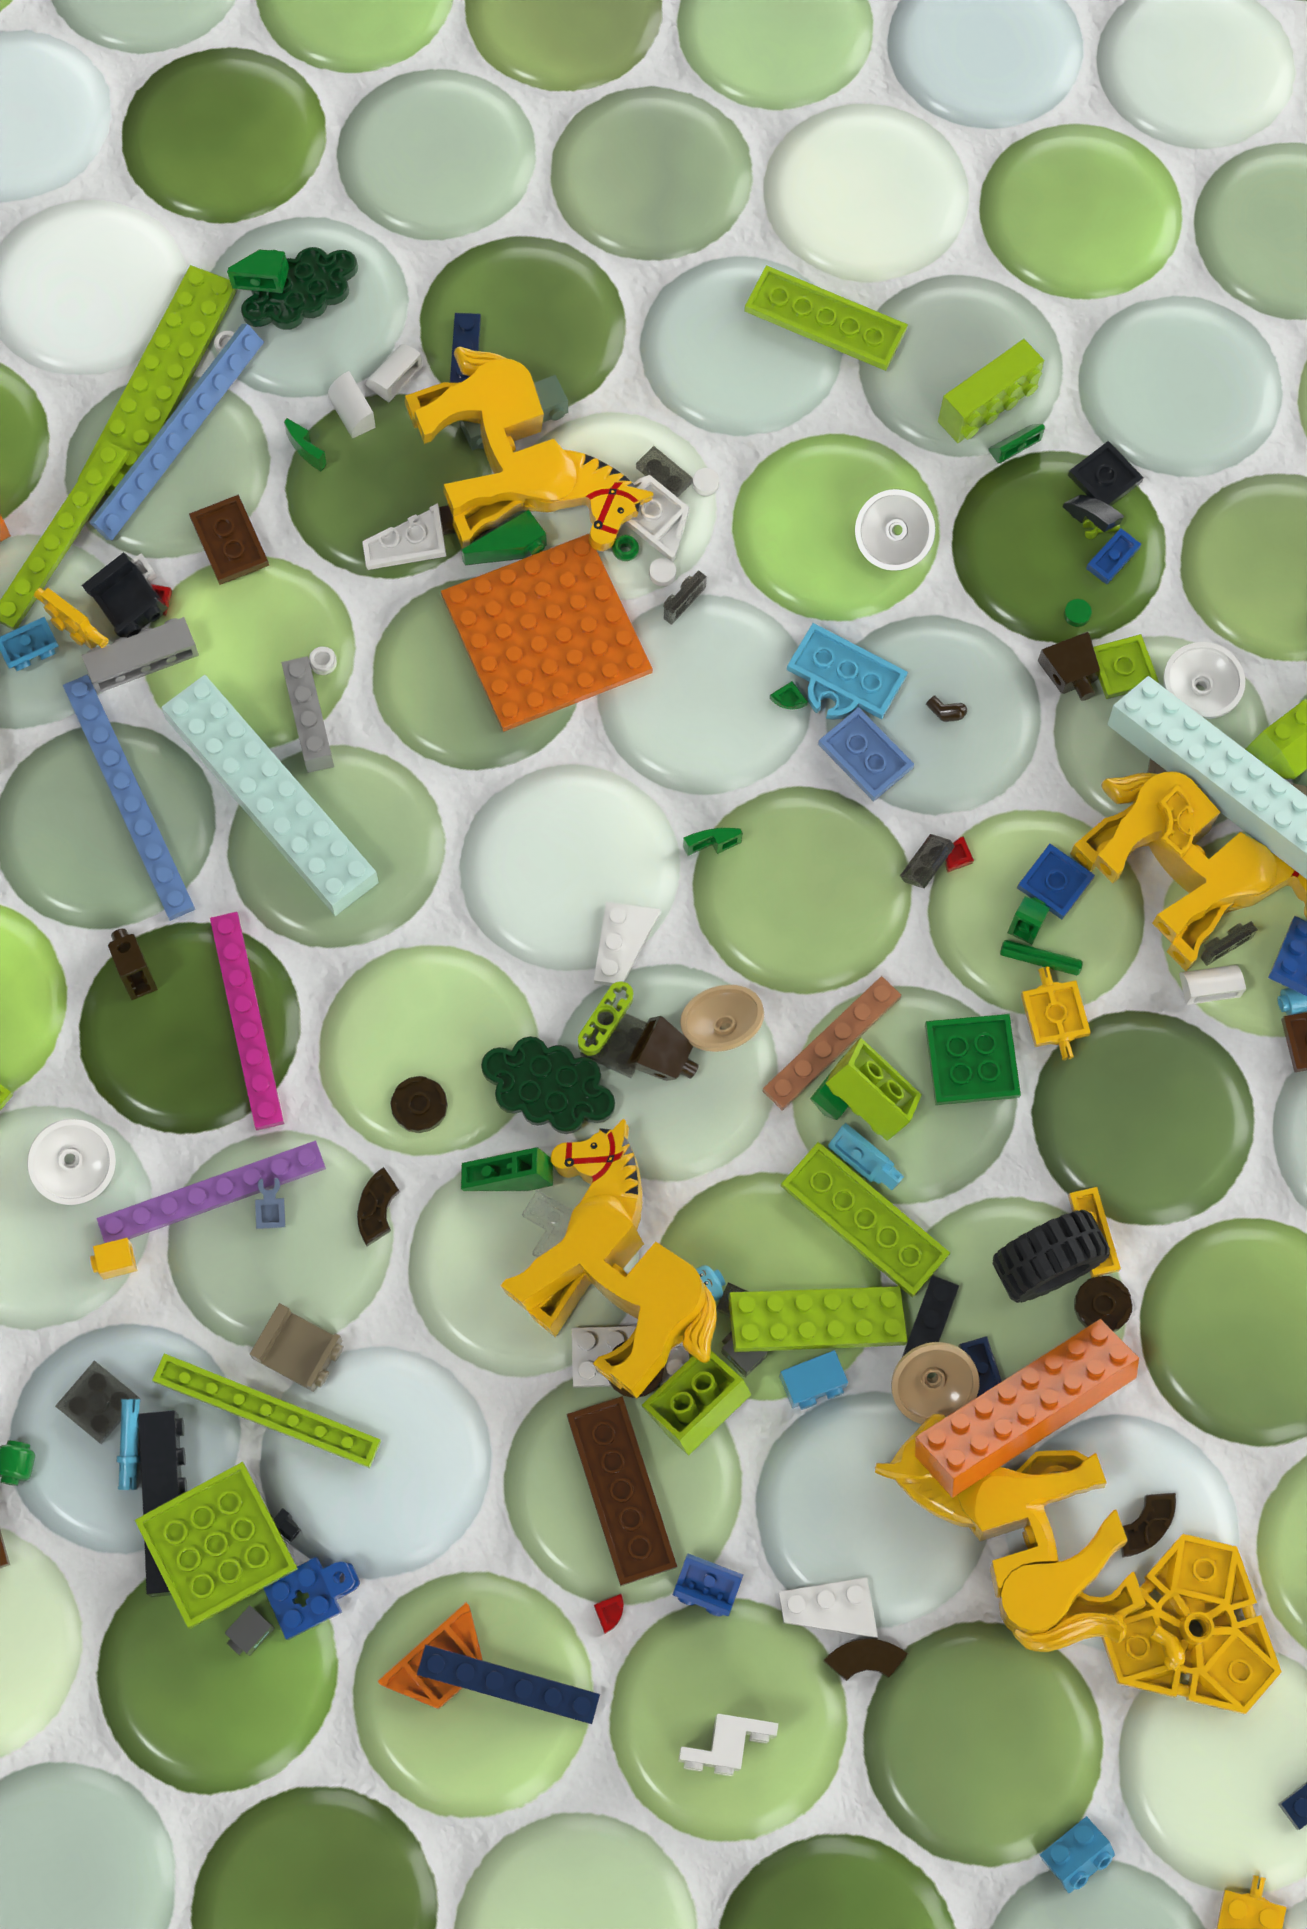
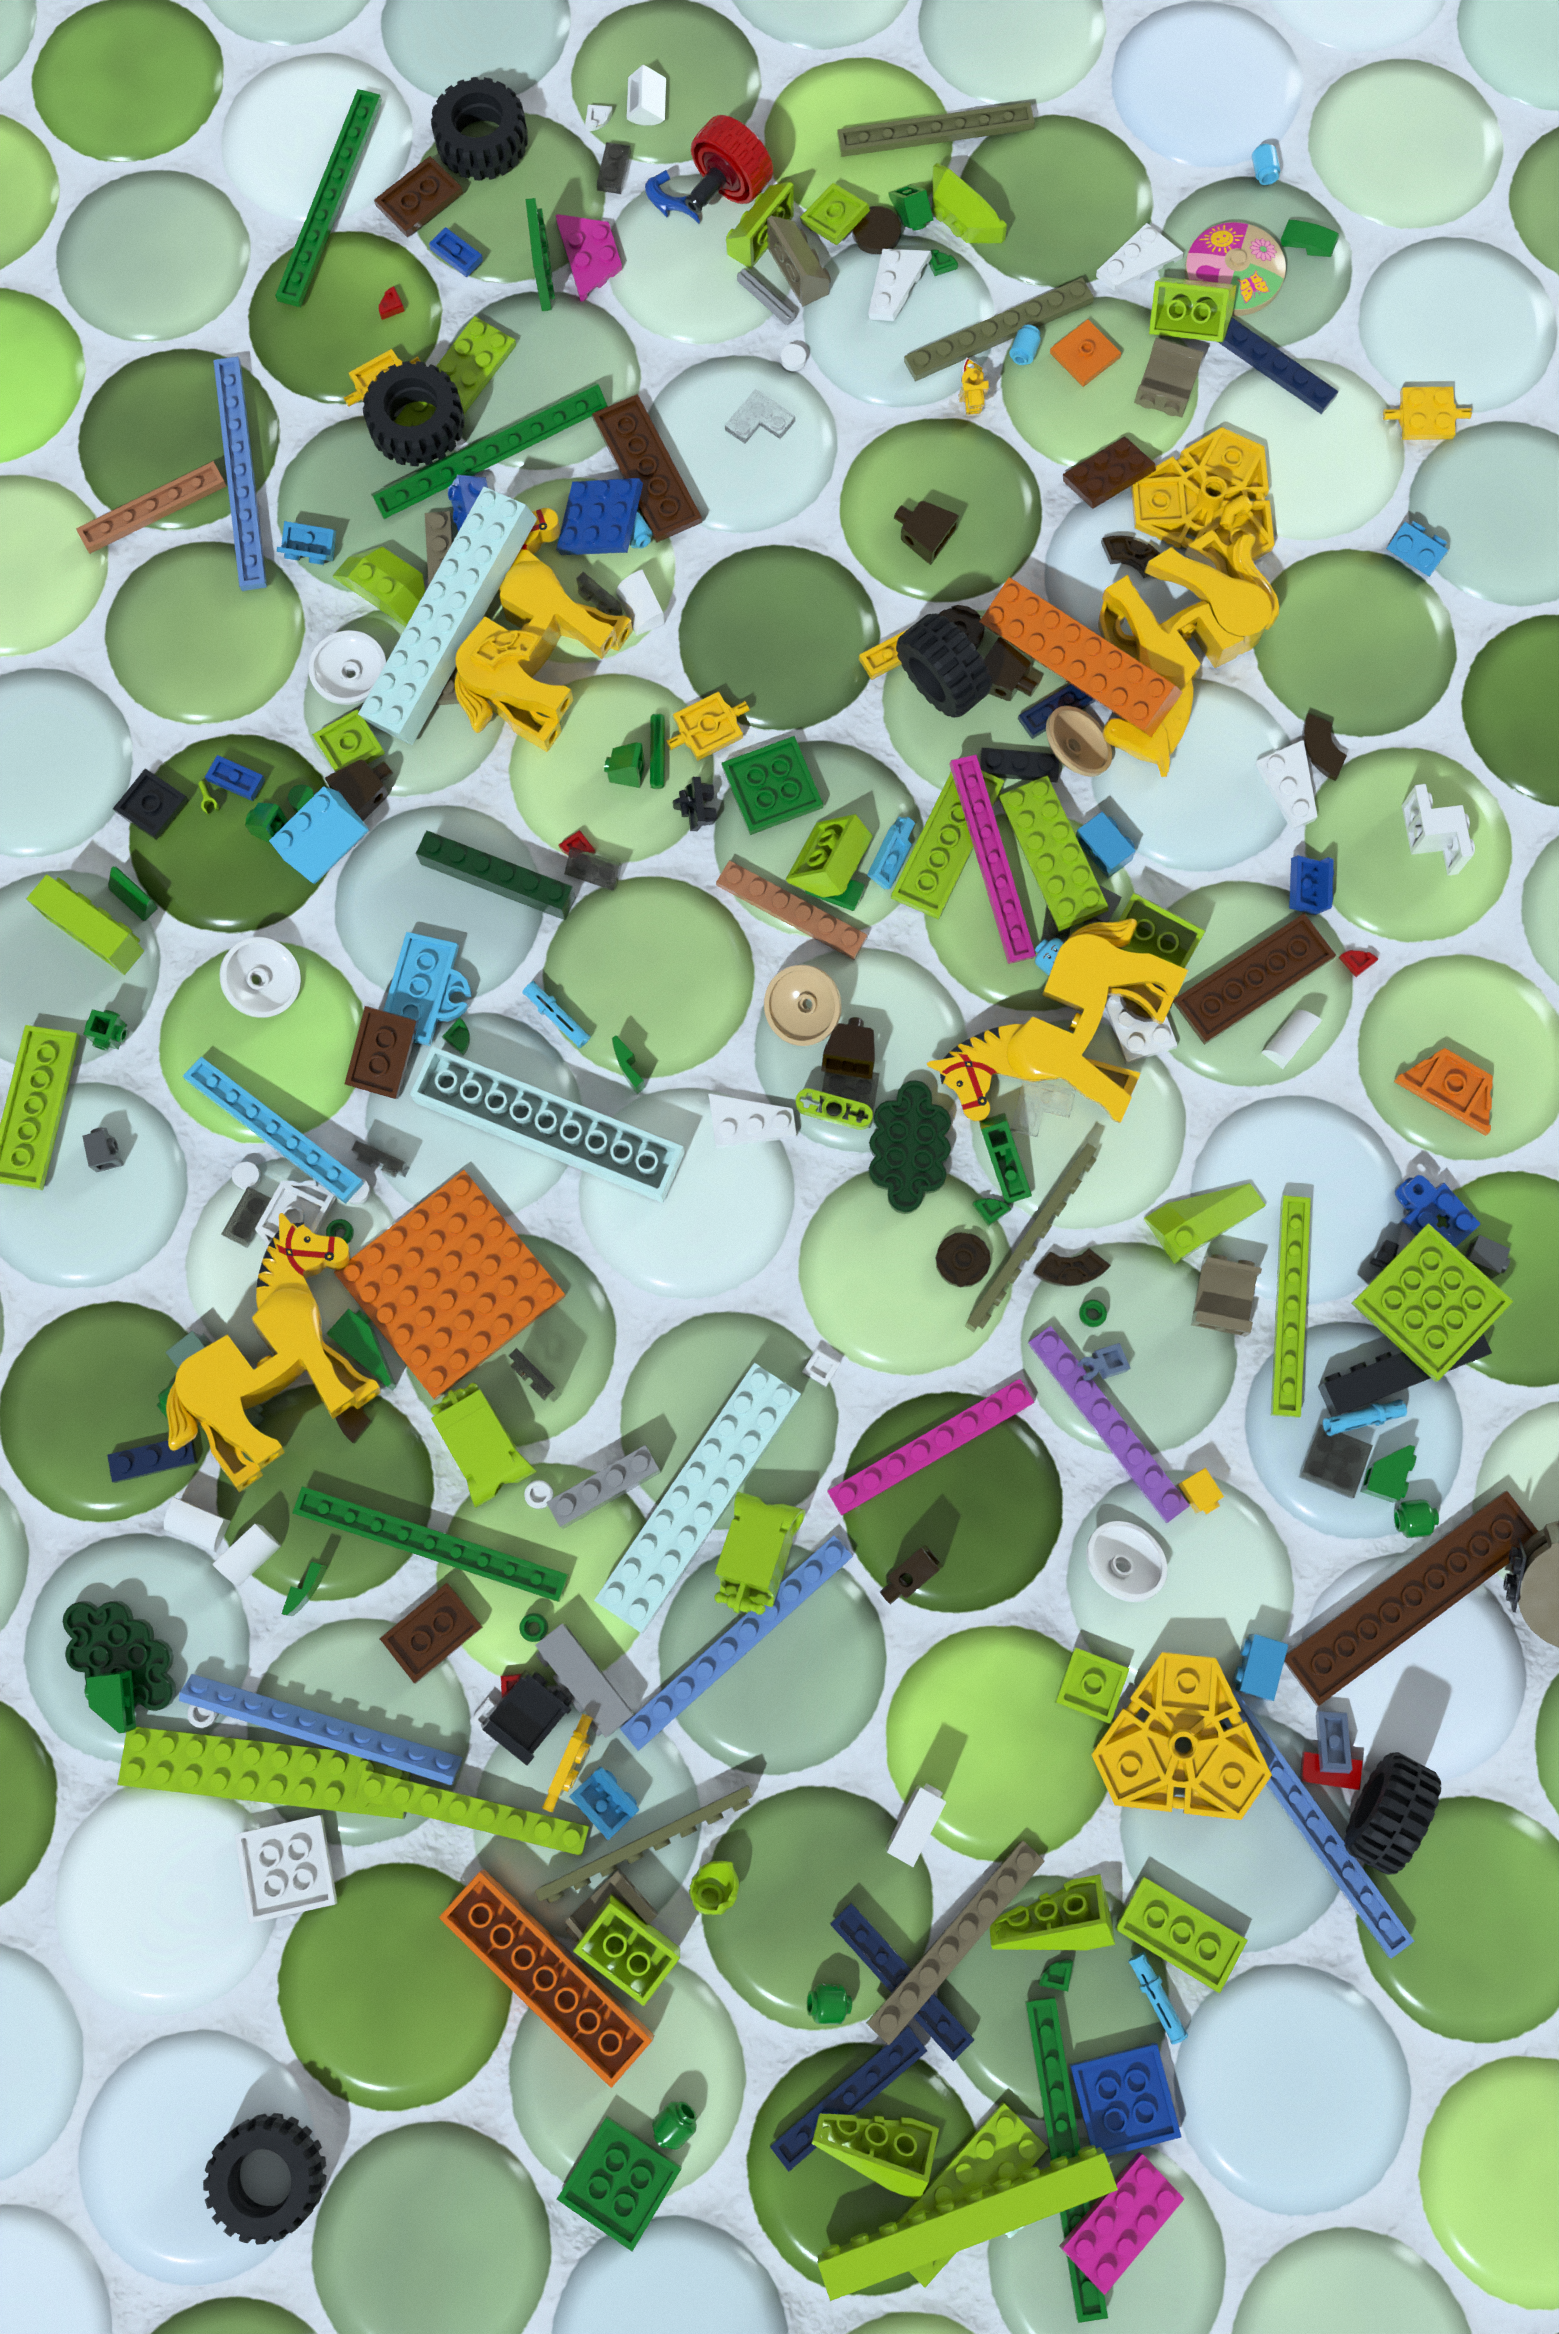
camera: 100 degrees left, 5 degrees up
(67, 1448) = (1388, 1475): none -> green slope
(70, 379) = (285, 1869): none -> white plate
(200, 827) = (756, 1553): none -> lime piece
(201, 619) = (525, 1623): none -> green plate
(307, 558) = (430, 1544): none -> green plate
(324, 1203) = (1098, 1307): none -> green plate
(356, 941) = (821, 1367): none -> white tile
(383, 617) = (479, 1443): none -> lime piece
(384, 1342) = (1197, 1220): none -> lime wedge
(409, 542) = (388, 1447): white wing -> none
(424, 1183) = (1026, 1248): none -> olive plate
(430, 676) = (540, 1383): none -> clear smoke plate
(460, 1147) = (991, 1209): none -> green tile
(508, 1684) = (1451, 1024): dark blue plate -> none
(545, 1506) = (1291, 1037): none -> white brick
(670, 751) = (547, 1124): none -> light aqua brick
(740, 510) = (273, 1130): none -> medium azure plate
(766, 363) = (101, 1150): none -> dark grey brick
(784, 789) = (534, 993): none -> medium azure pin
(789, 620) = (381, 1052): none -> reddish brown plate
(827, 1252) = (992, 859): none -> dark pink plate
(866, 754) = (500, 950): medium blue plate -> none
(882, 388) = (105, 1029): none -> green brick
(944, 767) = (495, 875): none -> dark green brick
(947, 712) = (436, 888): dark brown arm -> none
(957, 978) = (692, 806): none -> black hips
(1029, 613) = (319, 834): none -> medium azure slope
(1037, 1333) = (1008, 671): none -> dark brown torso
(1054, 572) = (265, 820): none -> green slope
(1056, 881) = (580, 754): blue plate -> none
(1100, 513) = (190, 811): black slope -> none
(1229, 1302) = (926, 529): none -> dark brown torso
(1253, 1524) = (1109, 472): none -> reddish brown plate

